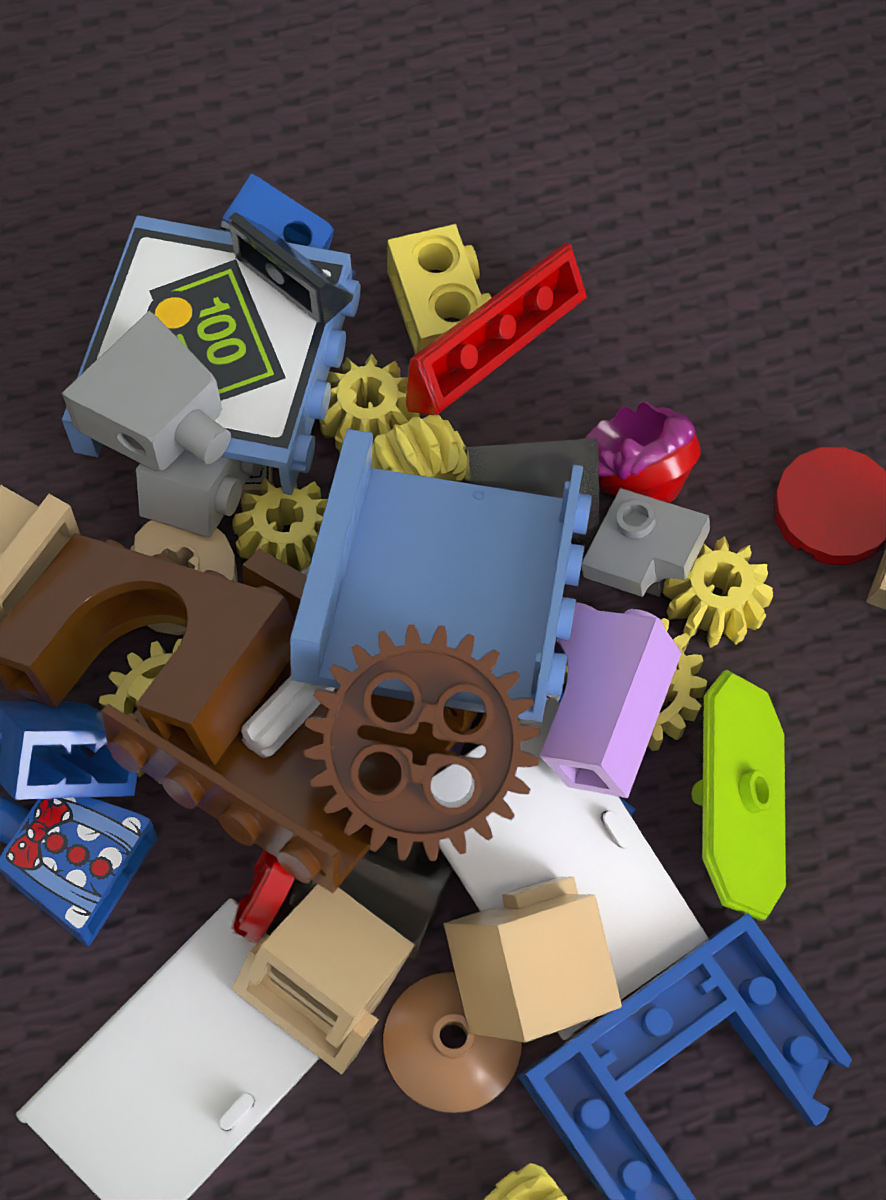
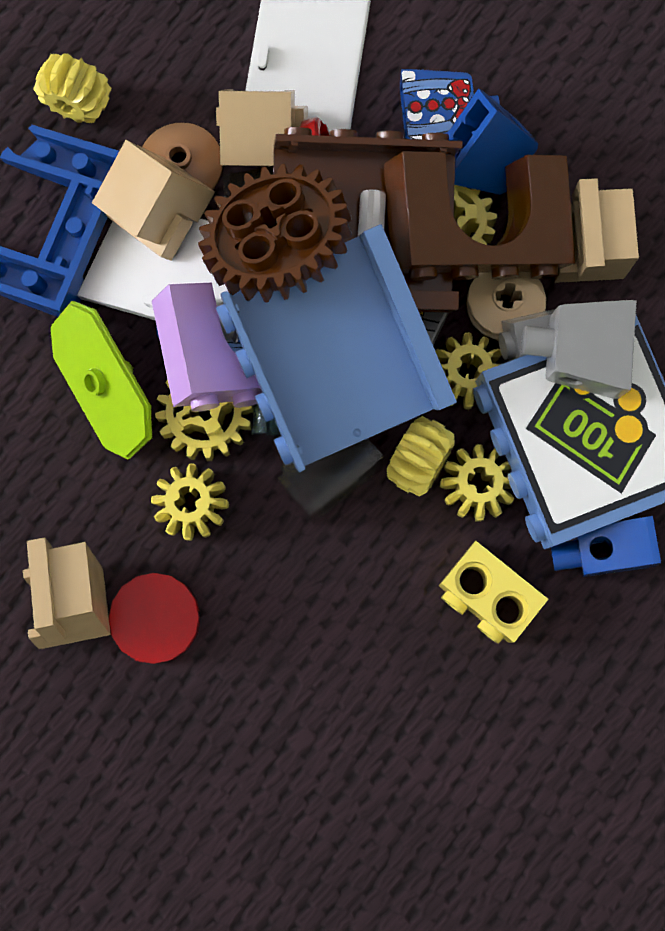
camera: 155 degrees right, 15 degrees up
(287, 270) = (579, 501): black slope -> none
(494, 332) = (429, 575): red slope -> none
(644, 544) = (249, 490): light grey brick -> none
(646, 451) = (291, 559): magenta hair -> none

